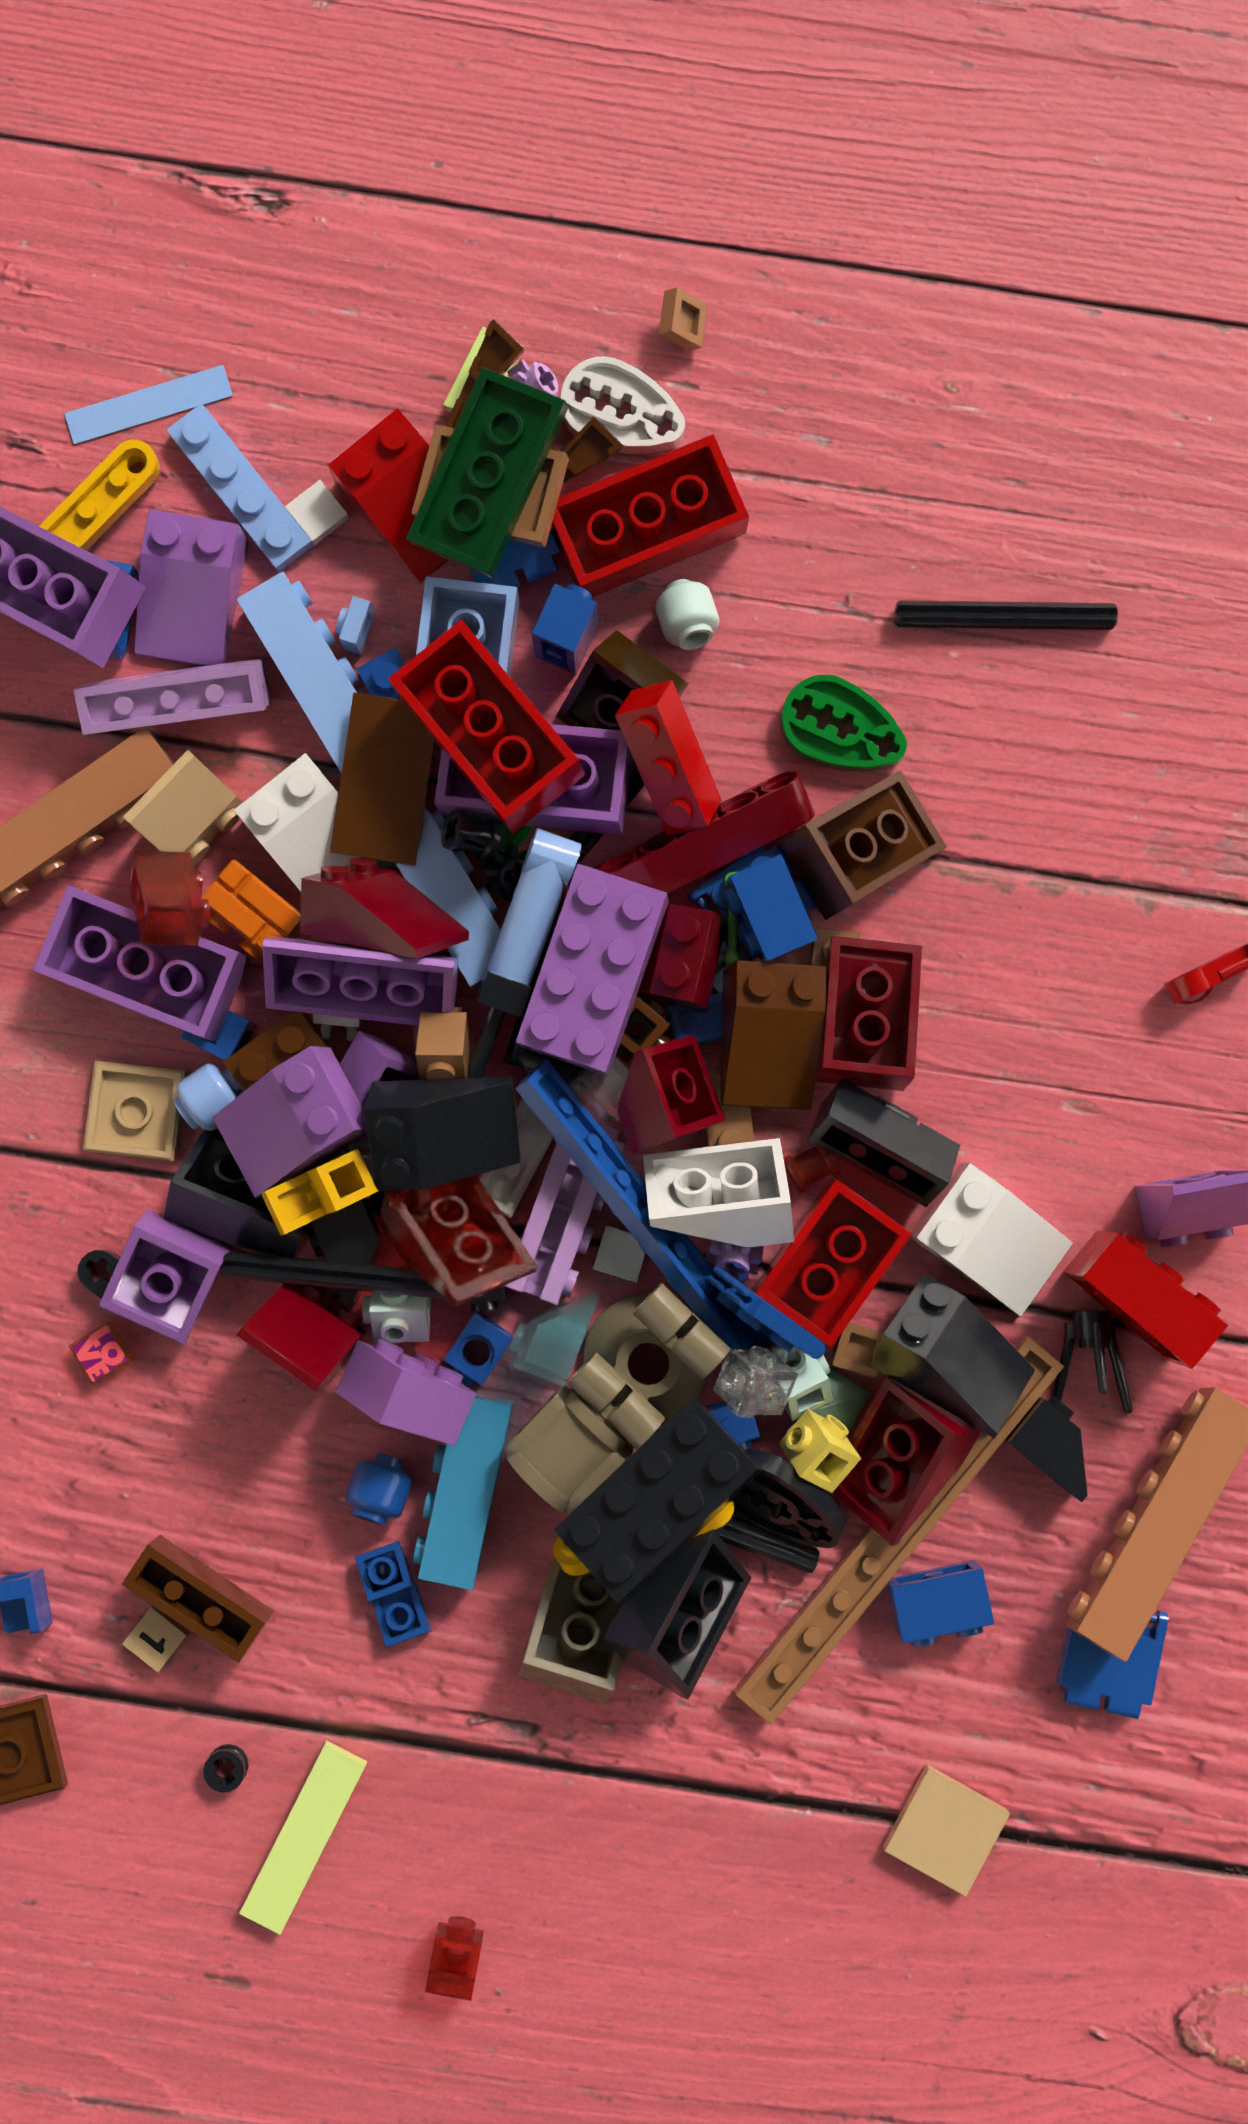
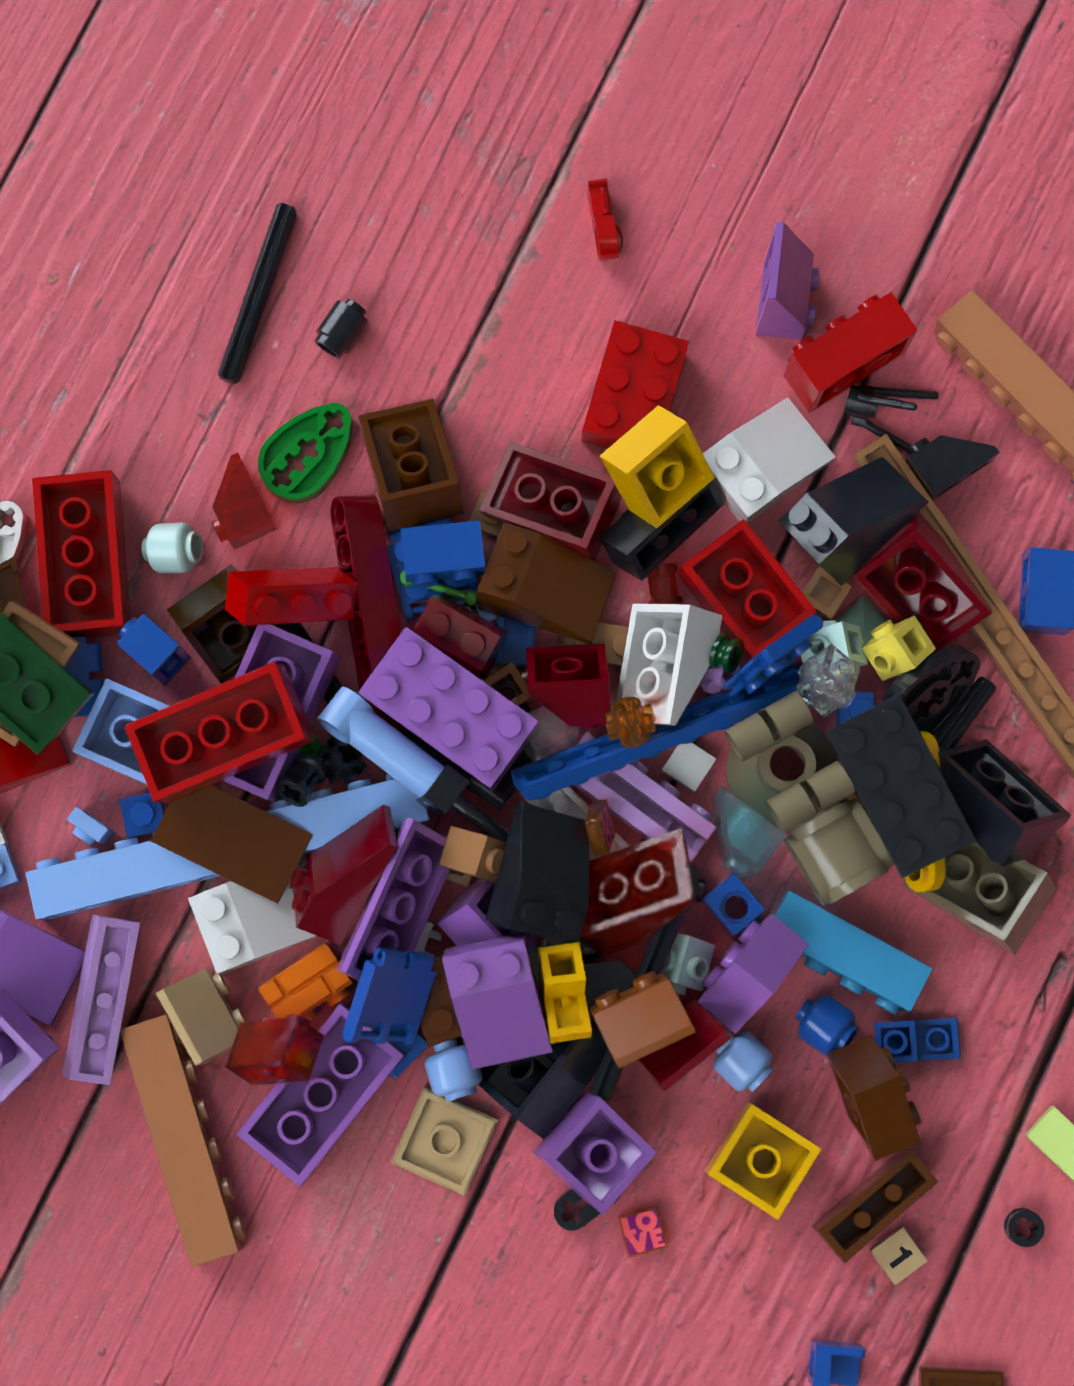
camera: 70 degrees left, 5 degrees down
(209, 1461) = (762, 1160): none -> yellow brick
(261, 1003) = (390, 996): none -> blue plate
(310, 1284) = (641, 1018): none -> dark orange slope
(310, 1567) = (875, 1097): none -> reddish brown brick
(311, 1413) = (743, 1061): none -> light blue head
(516, 1176) = (600, 827): none -> clear orange tile
(639, 1175) = (630, 722): none -> clear orange gear
(752, 1259) = (726, 653): none -> dark green bush
(756, 672) = (239, 507): none -> clear red slope
(940, 1119) = (657, 466): none -> yellow brick
(994, 719) = (341, 328): none -> black brick
(1024, 1068) = (634, 378): none -> red brick

